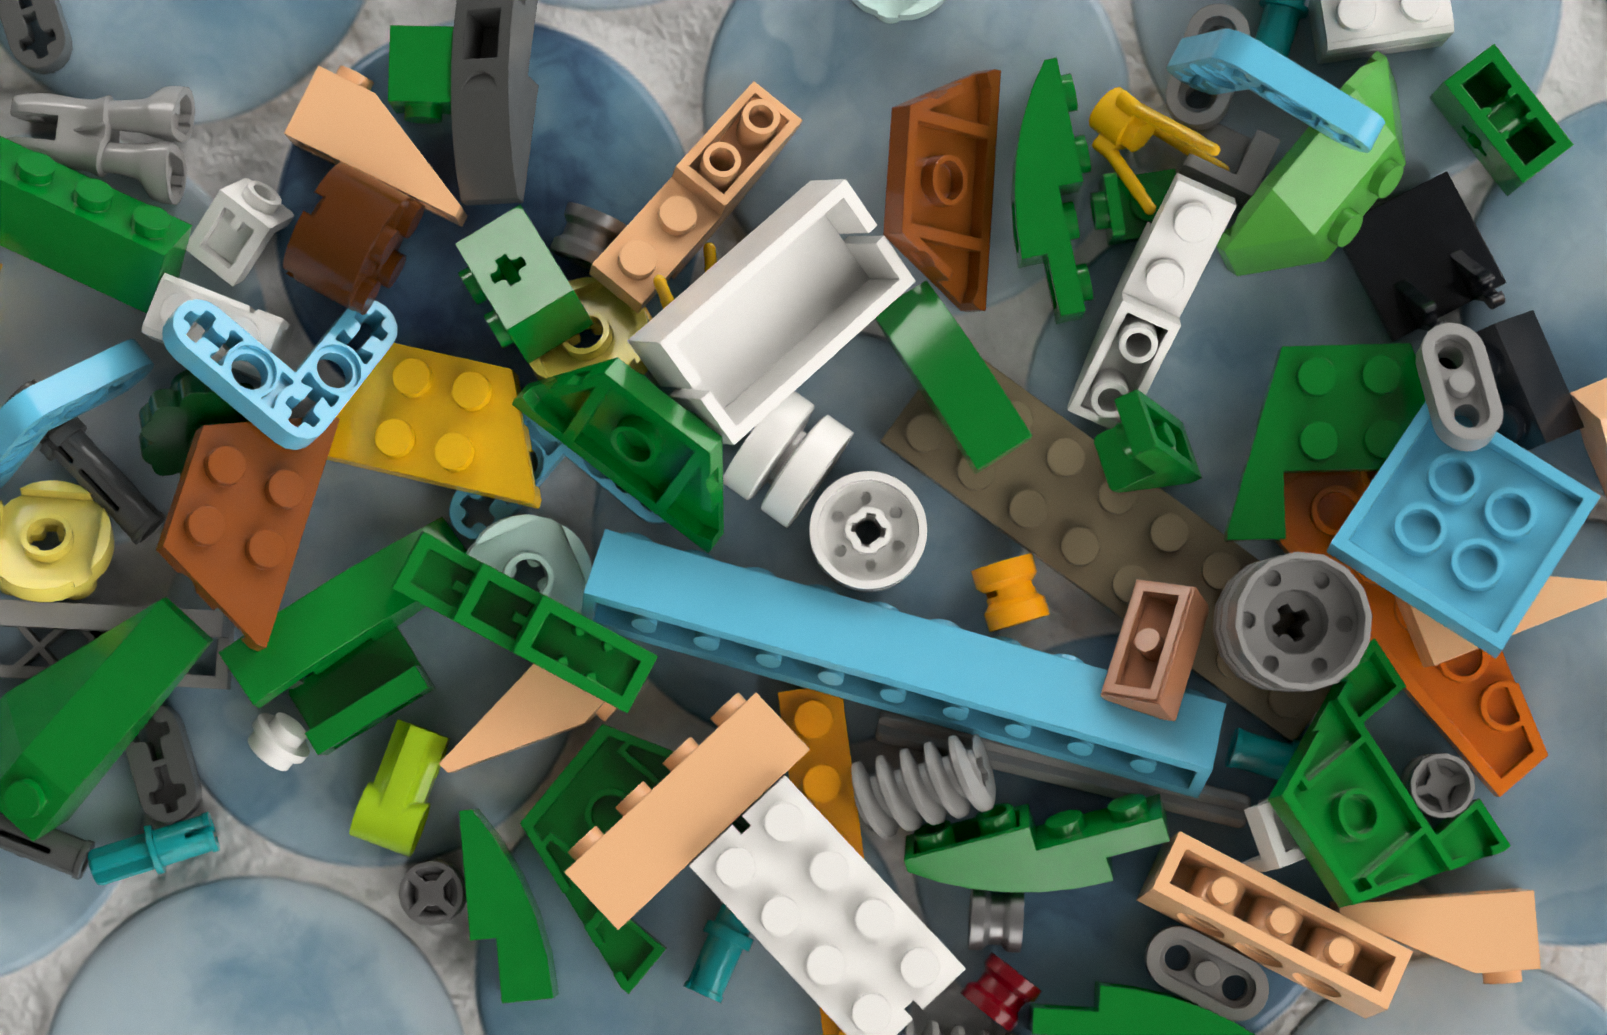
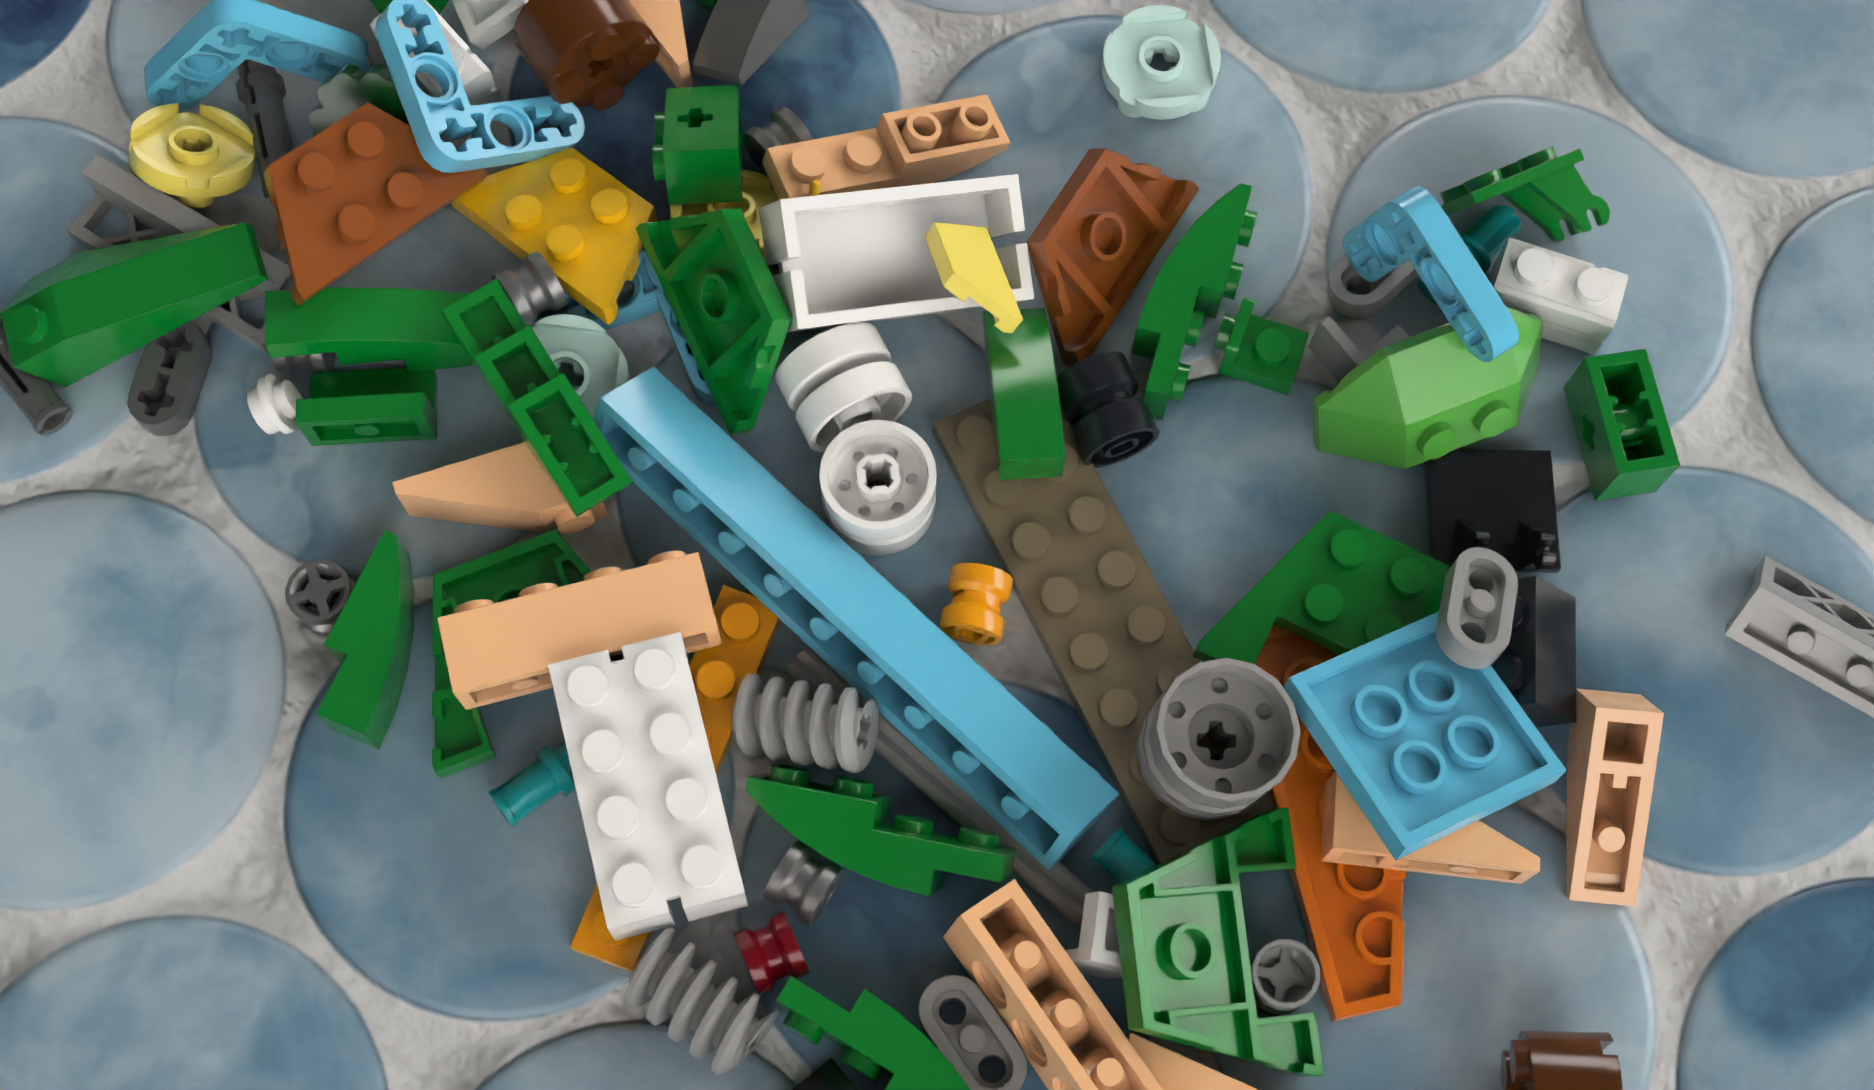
camera: 20 degrees right, 15 degrees down
(153, 849) = (115, 440): teal axle -> none
(396, 804) = (338, 508): lime piece -> none
(451, 516) = (532, 287): none -> flat silver wheel
(854, 295) = (973, 269): none -> light yellow tile
(1030, 348) = (1108, 418): none -> black wheel
(1130, 124) = (1284, 274): yellow plant -> none
(1145, 447) = (1164, 535): green slope -> none
(1151, 298) = (1230, 422): white slope -> none
(1156, 648) = (1081, 710): nougat slope -> none

